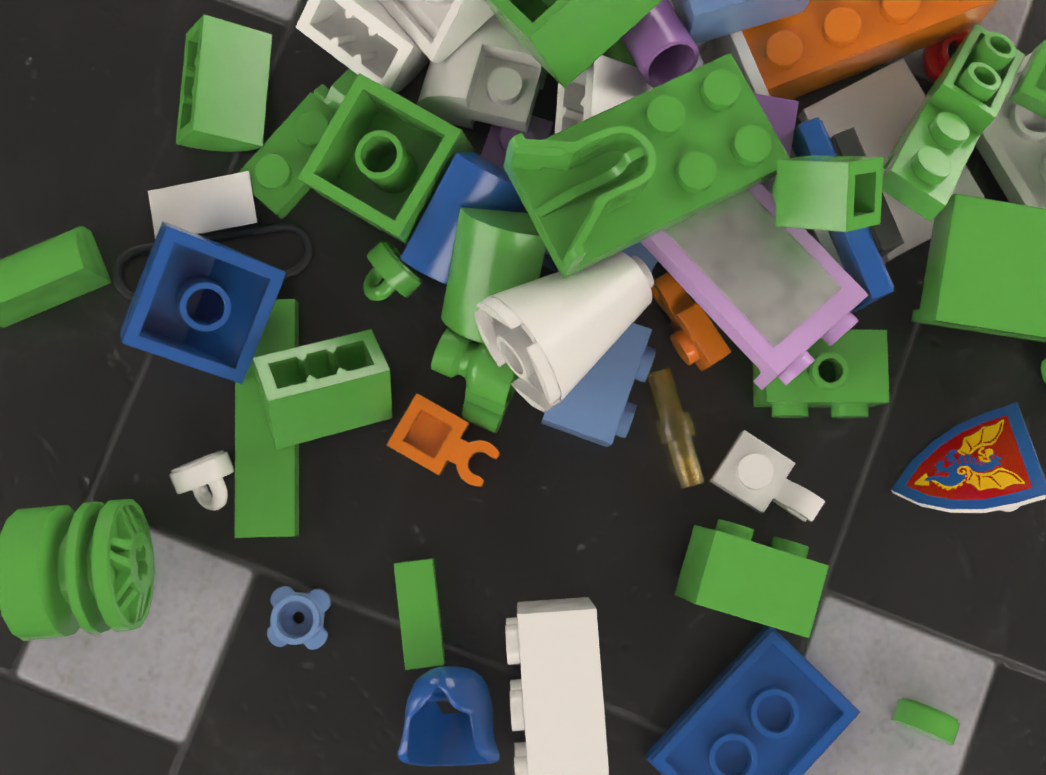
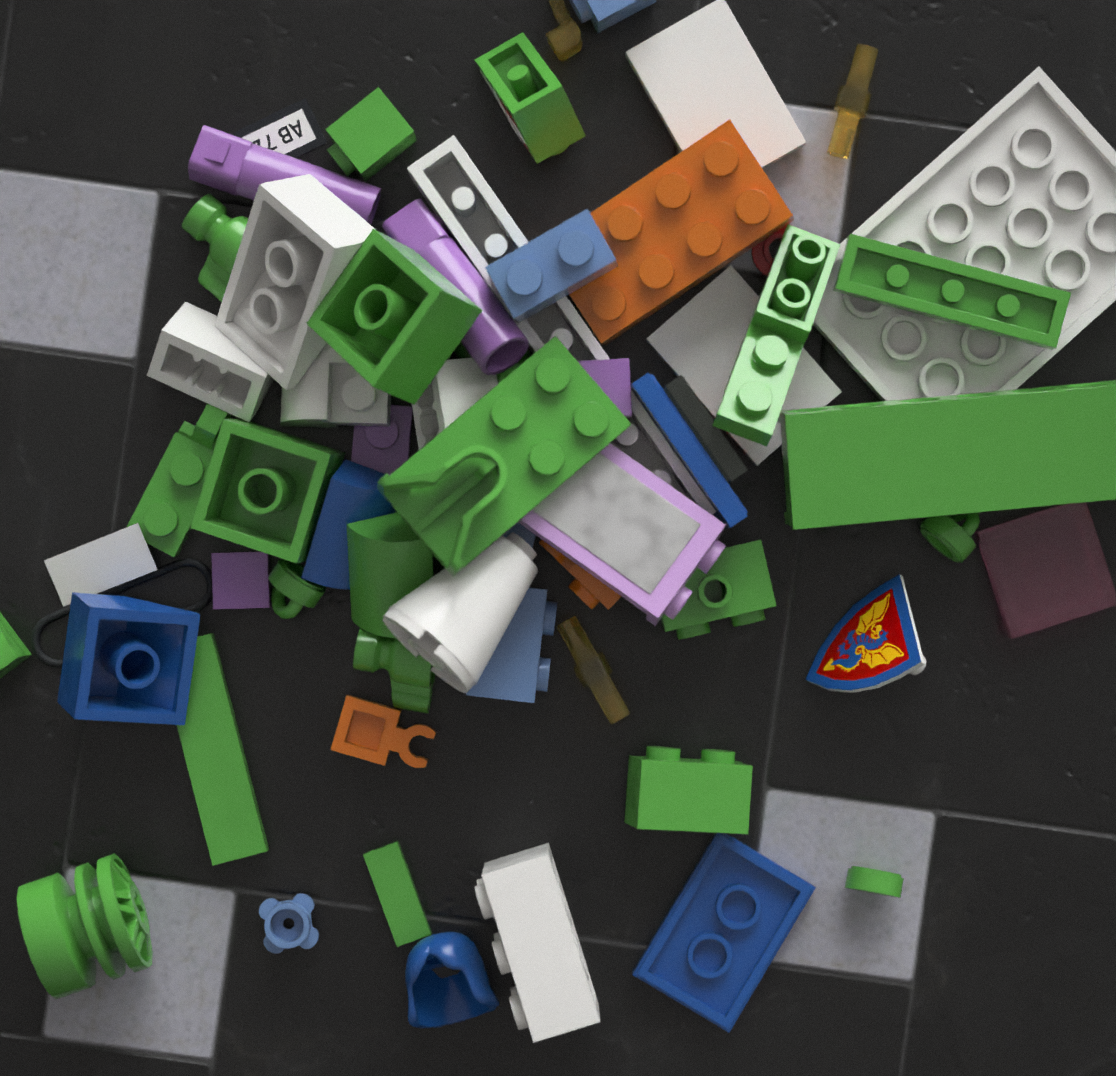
camera: 10 degrees left, 5 degrees up
(204, 471) = (168, 813): white tile -> none
(223, 86) = (92, 447): bright green brick -> none
(324, 388) = (261, 711): bright green brick -> none
(338, 255) = (241, 580): none -> medium lavender tile
(758, 476) = (678, 695): white plate -> none
(828, 192) = (666, 449): bright green brick -> none

